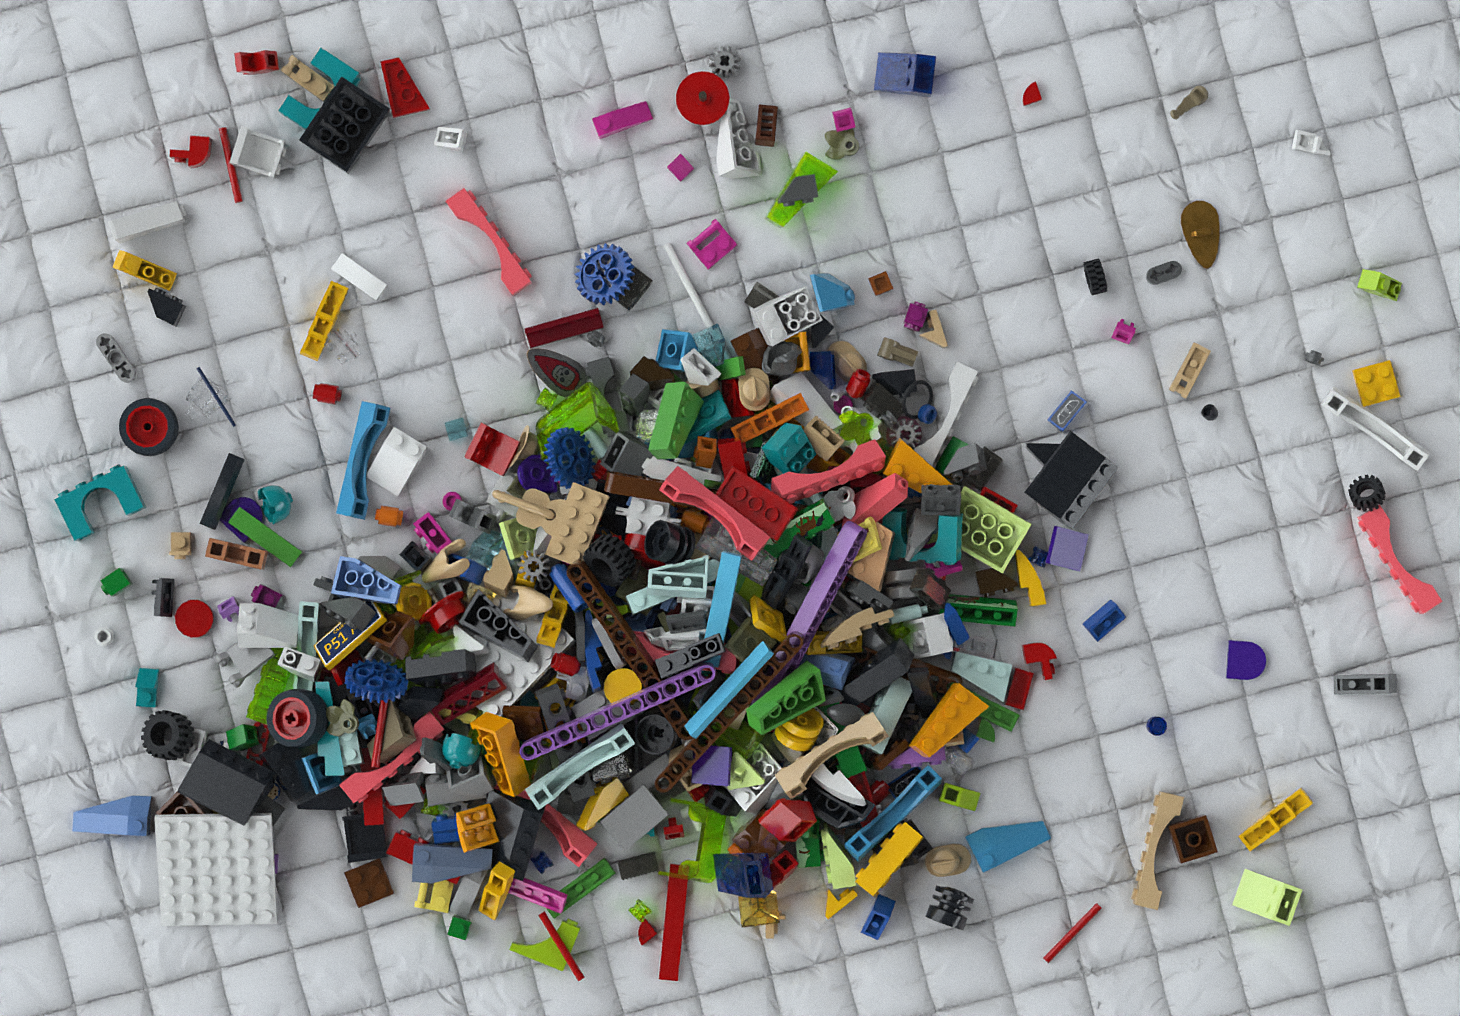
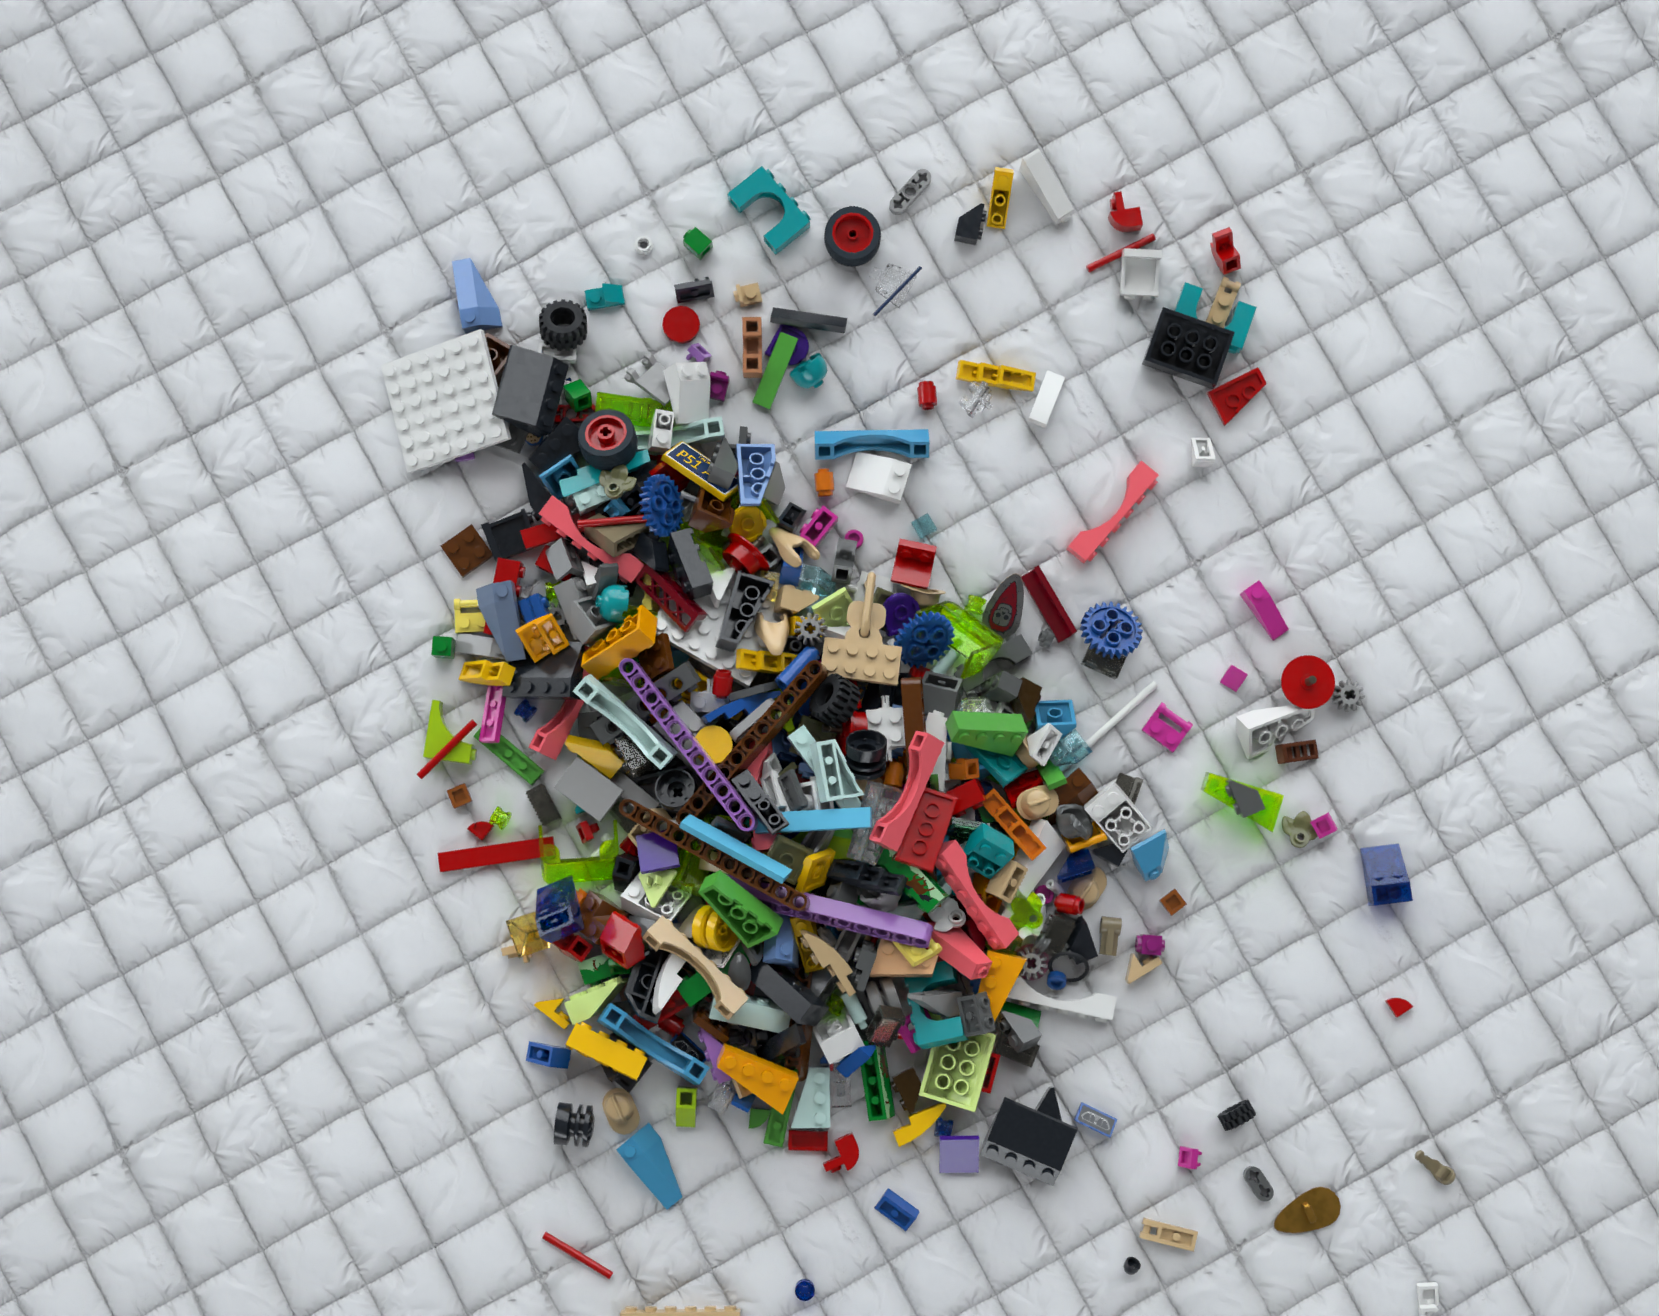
camera: 75 degrees right, 5 degrees down
(608, 945) = (459, 796): none -> dark orange plate

